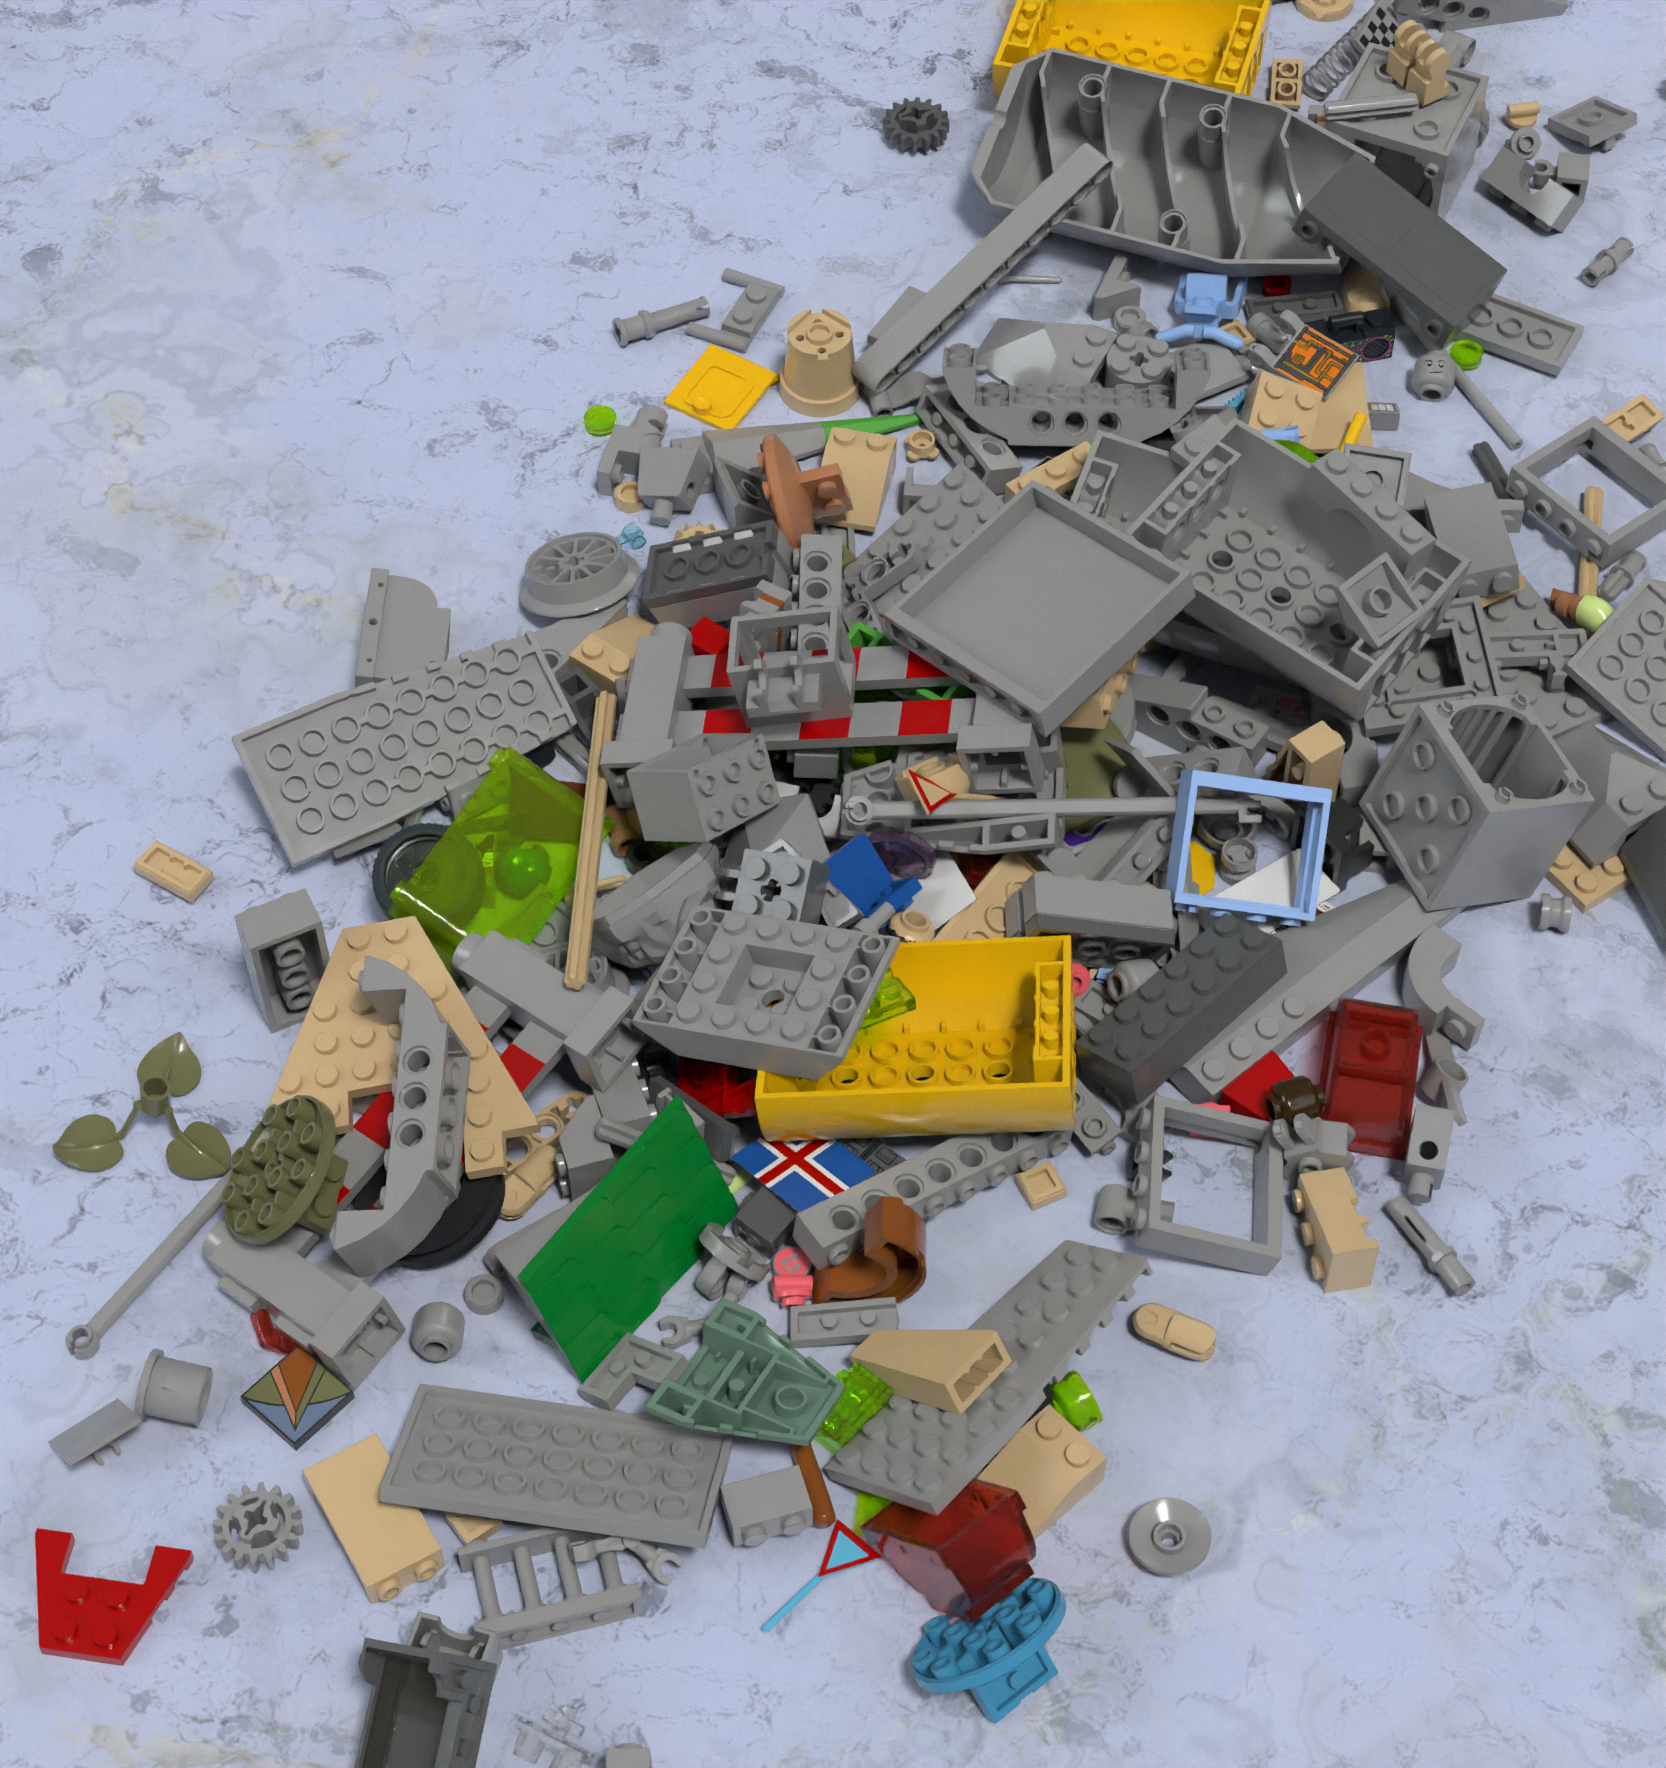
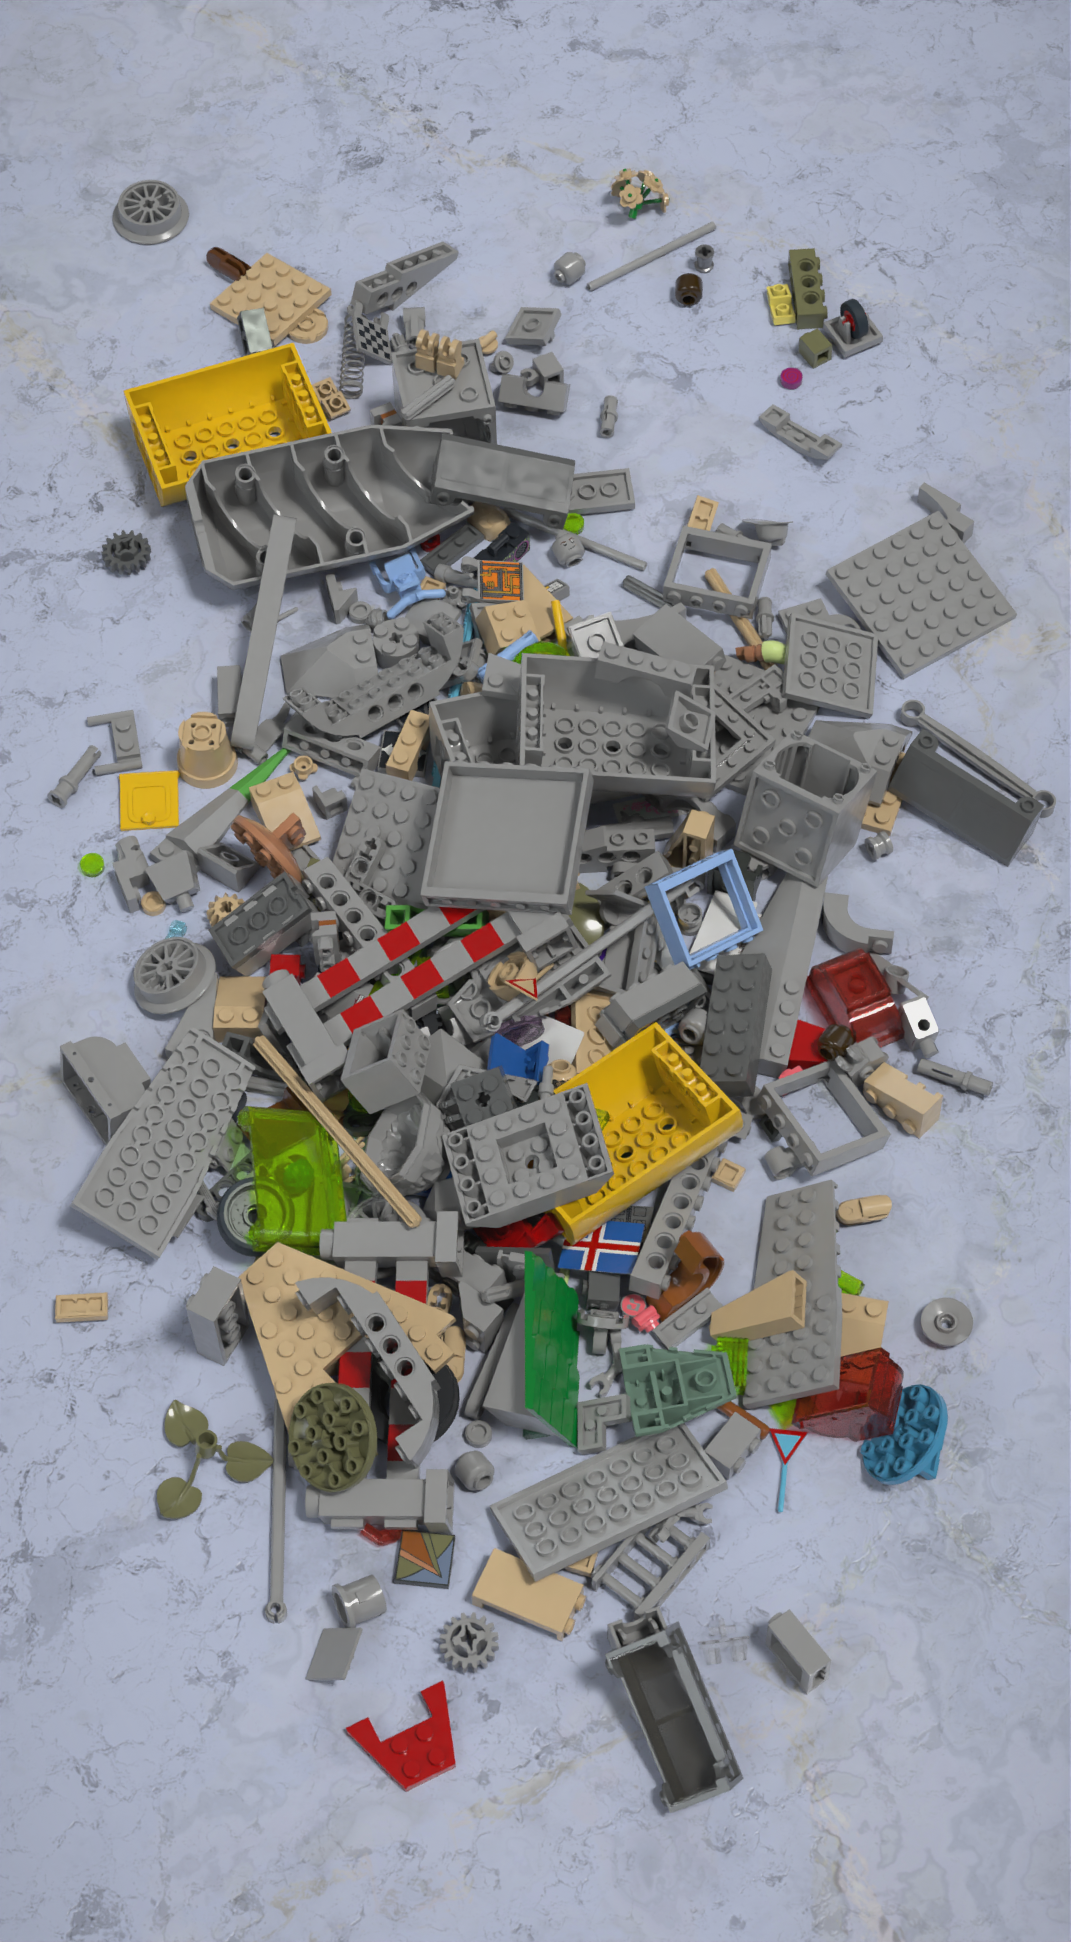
camera: 35 degrees left, 5 degrees up
(793, 687) = (393, 966): light grey piece -> none

